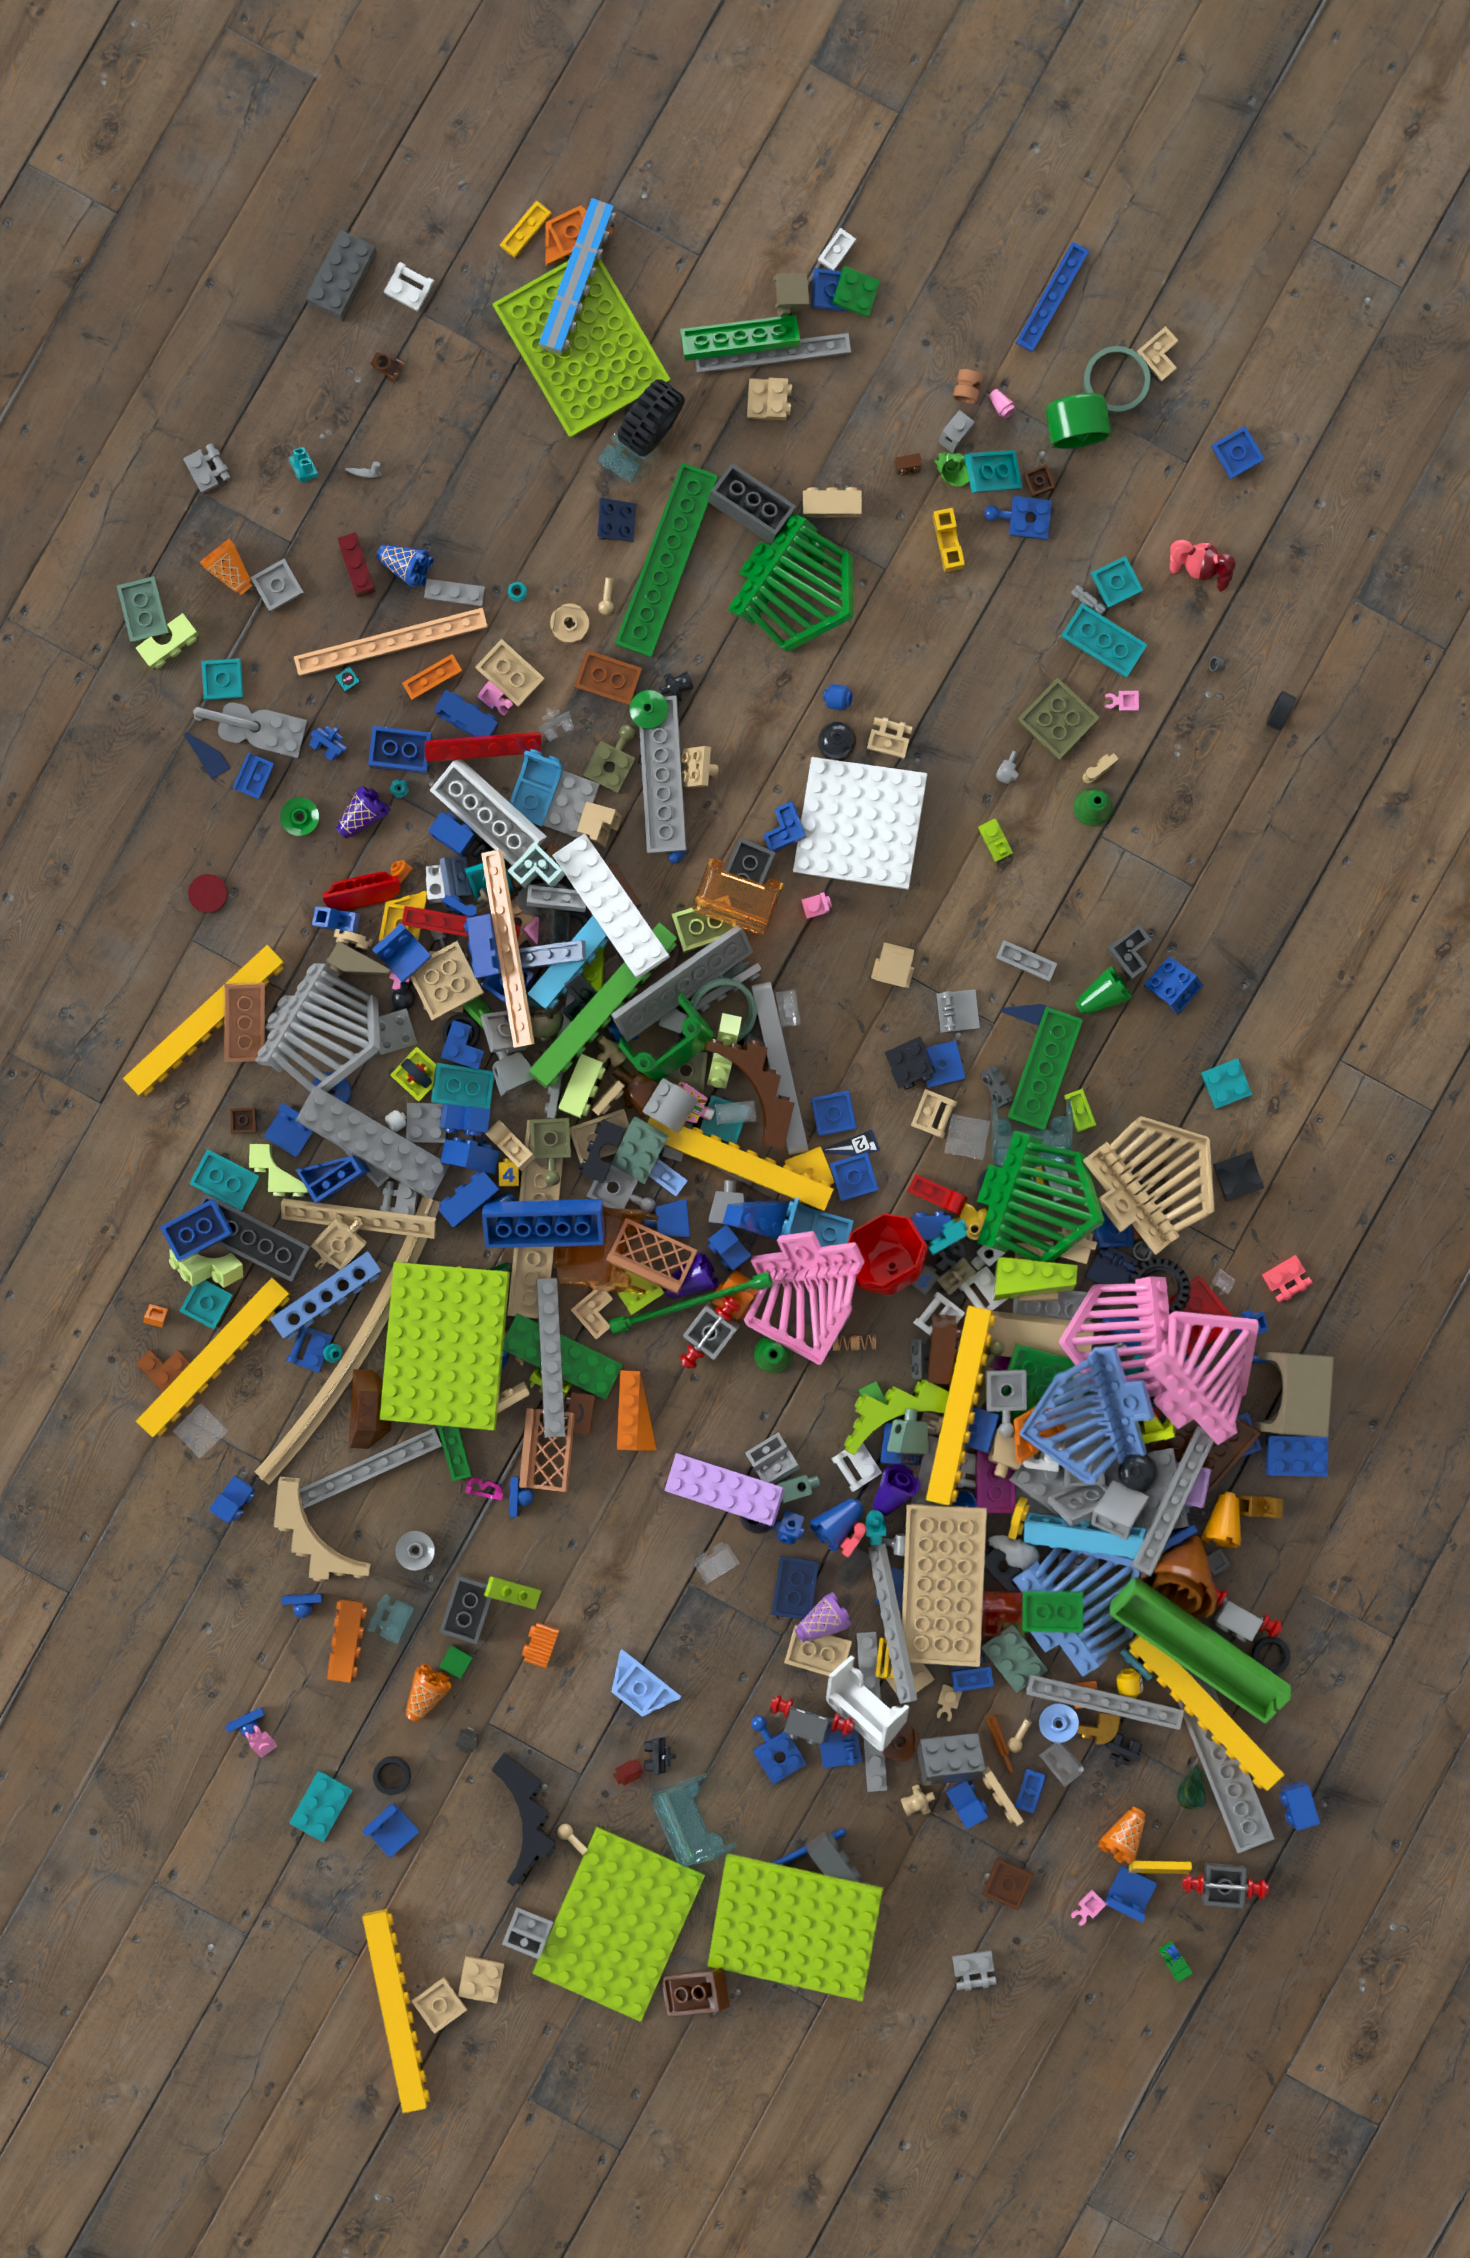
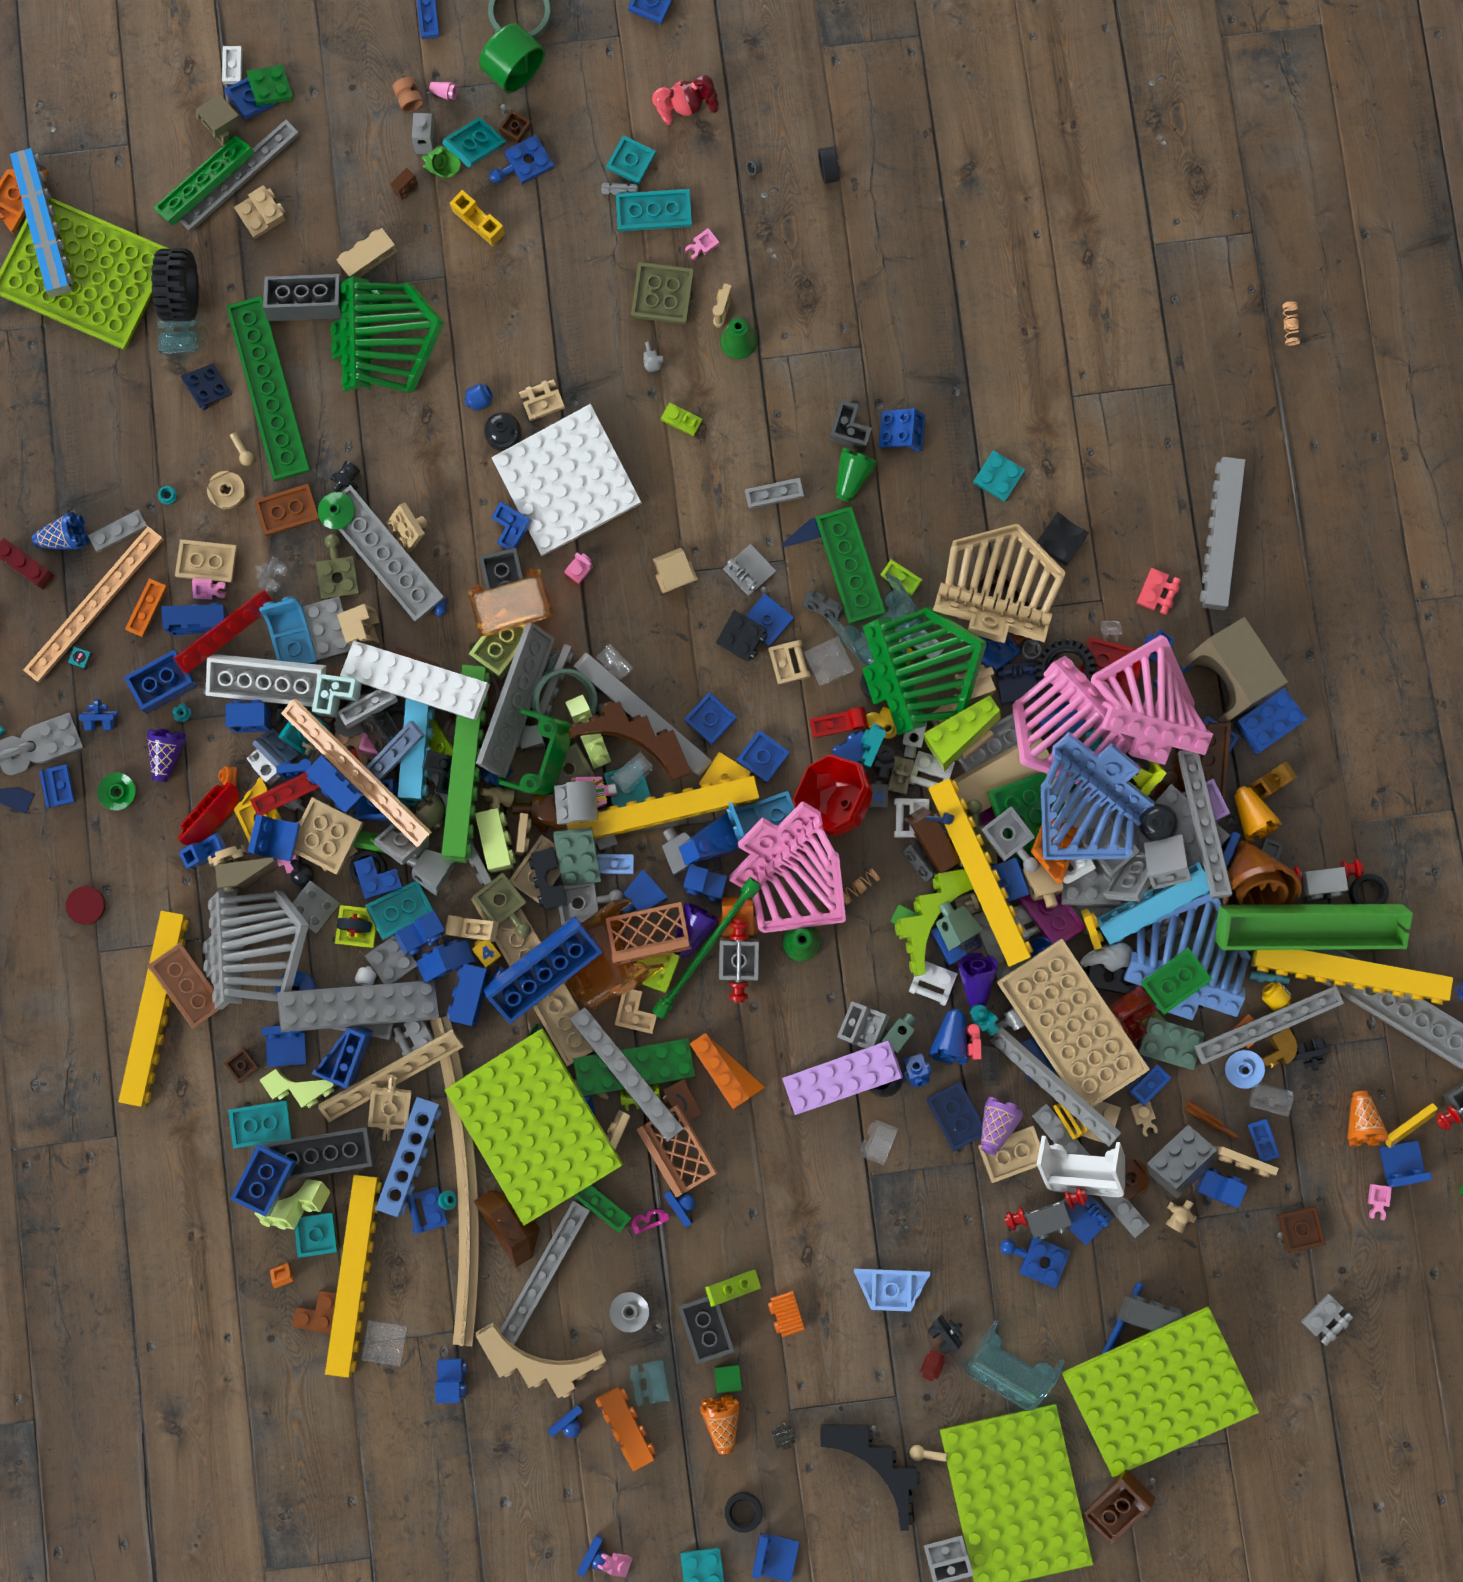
camera: 30 degrees left, 5 degrees down
(855, 1146) = (745, 732): sticker -> none
(964, 1342) = (946, 819): none -> dark blue hand
(1015, 1743) = (1222, 1112): tan bar -> none
(1192, 1791) = (1389, 1045): clear green piece -> none
(1377, 1270) = (1223, 533): none -> light grey brick

